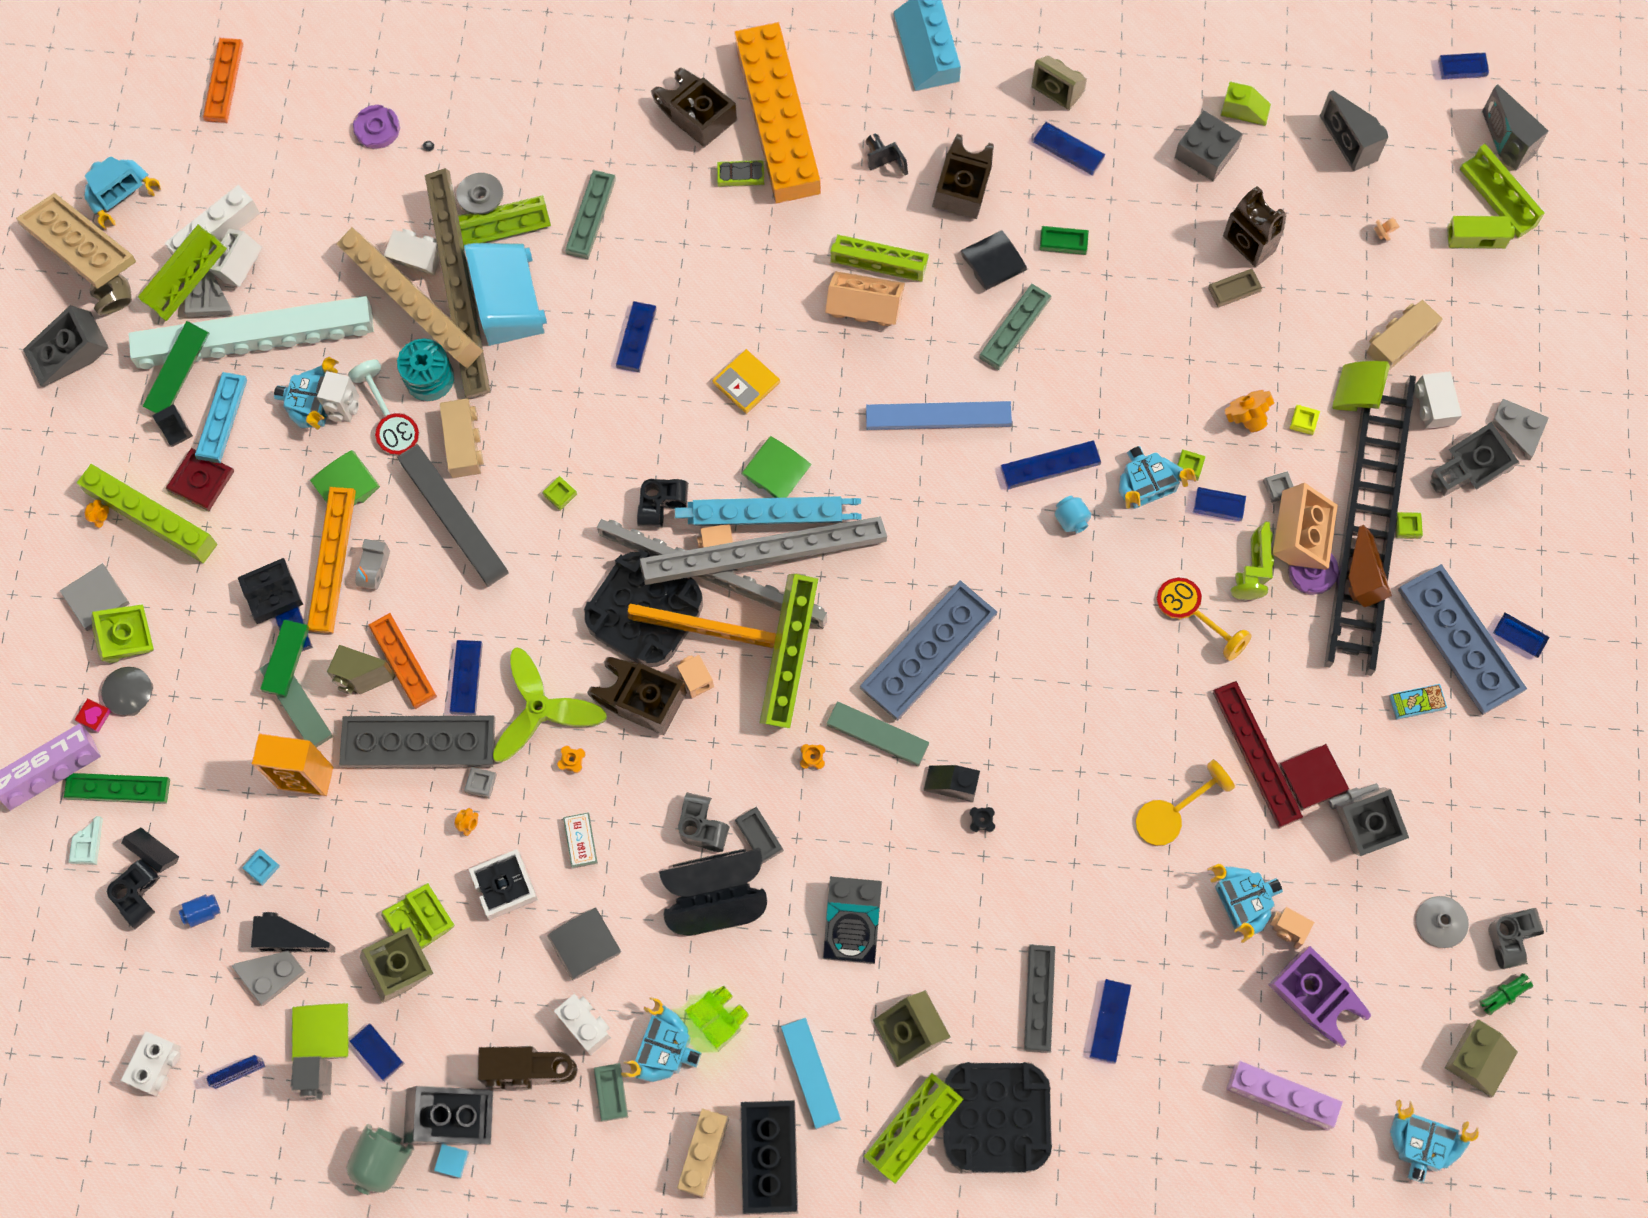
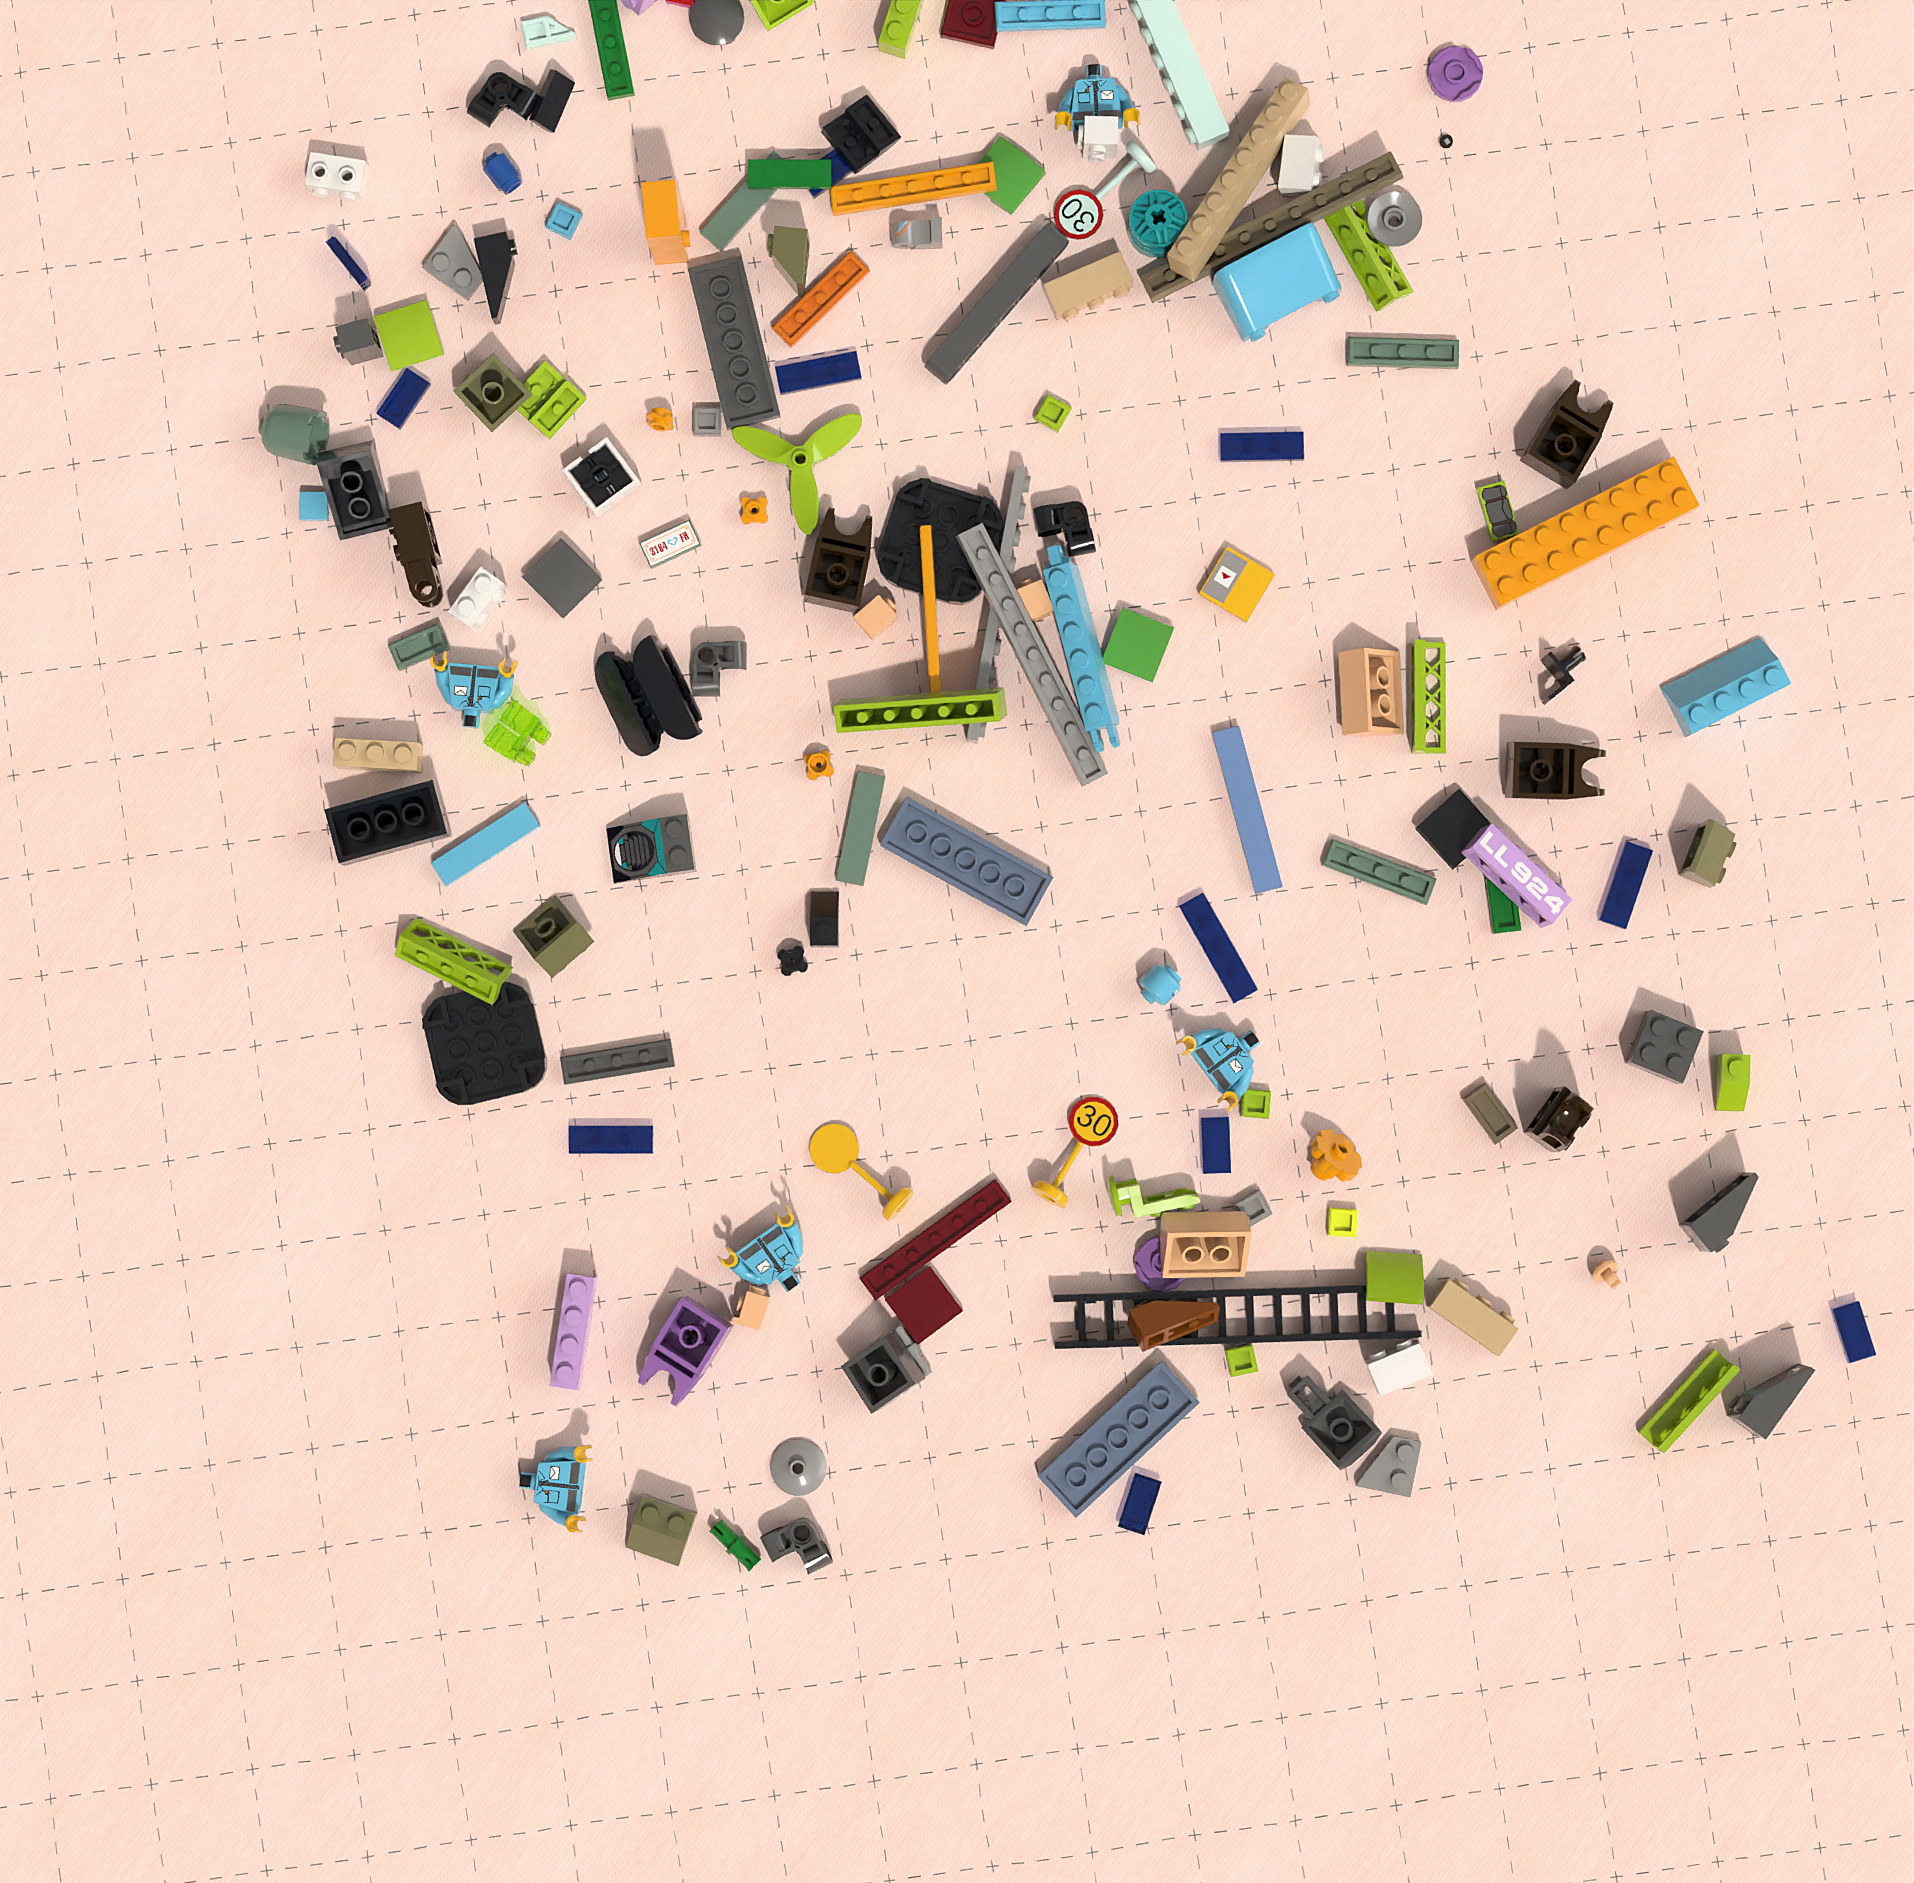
camera: 80 degrees right, 15 degrees up
(759, 834) = (721, 729): dark grey tile -> none
(1044, 219) = (1517, 875): none -> lavender brick
(1418, 701) = (1035, 1403): tile -> none
(1480, 232) = (1628, 1384): lime brick -> none

